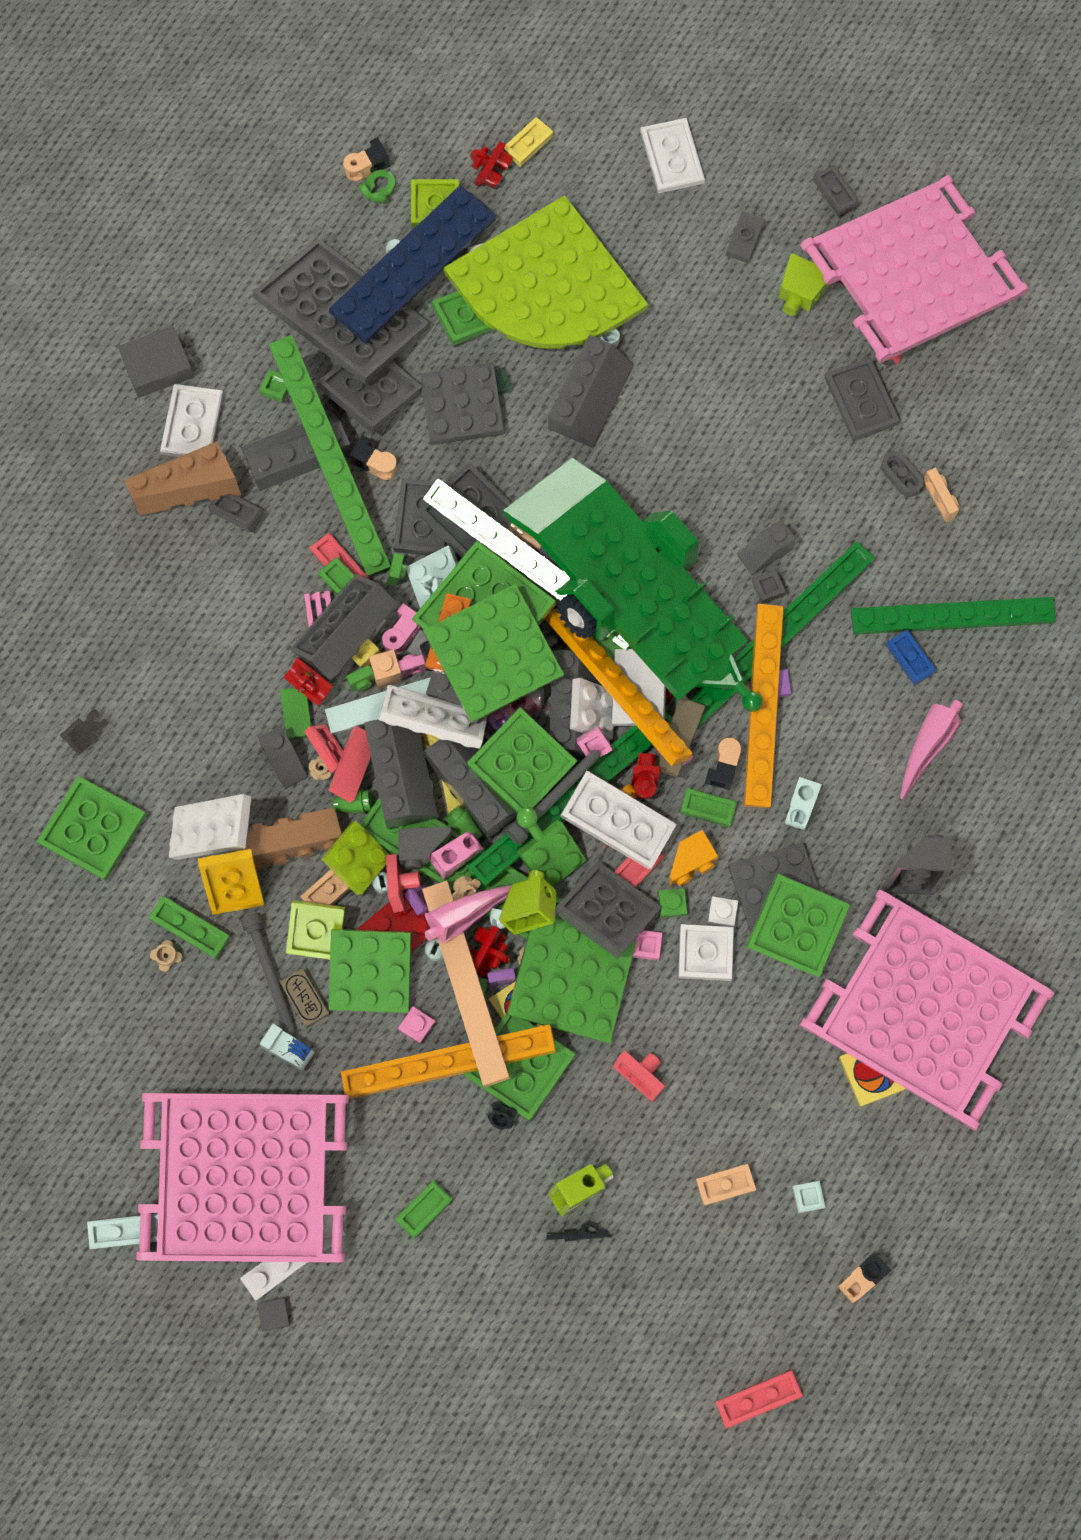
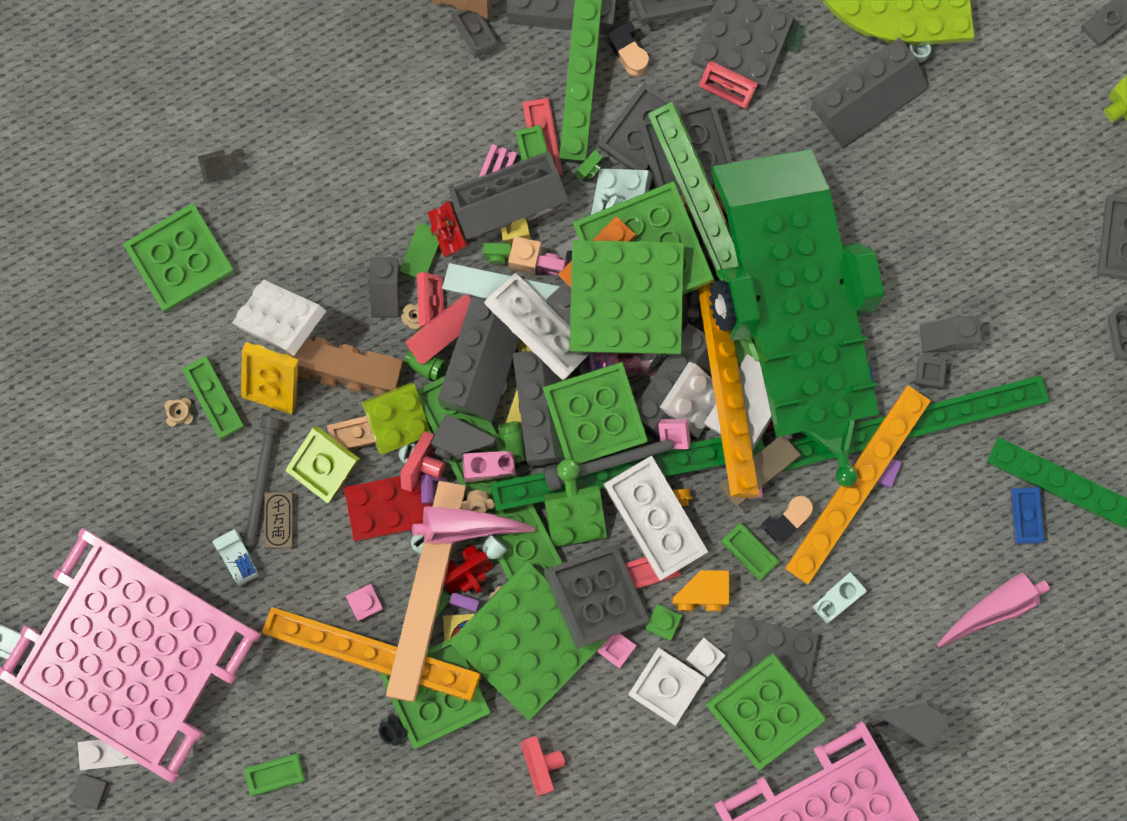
camera: 35 degrees right, 5 degrees up
(370, 970) = (349, 529): bright green plate -> none
(402, 632) = (560, 230): bright pink leg -> none
(471, 444) = (735, 77): none -> coral tile
(529, 904) = (525, 551): lime torso -> none
(645, 776) = (704, 491): red hips -> none

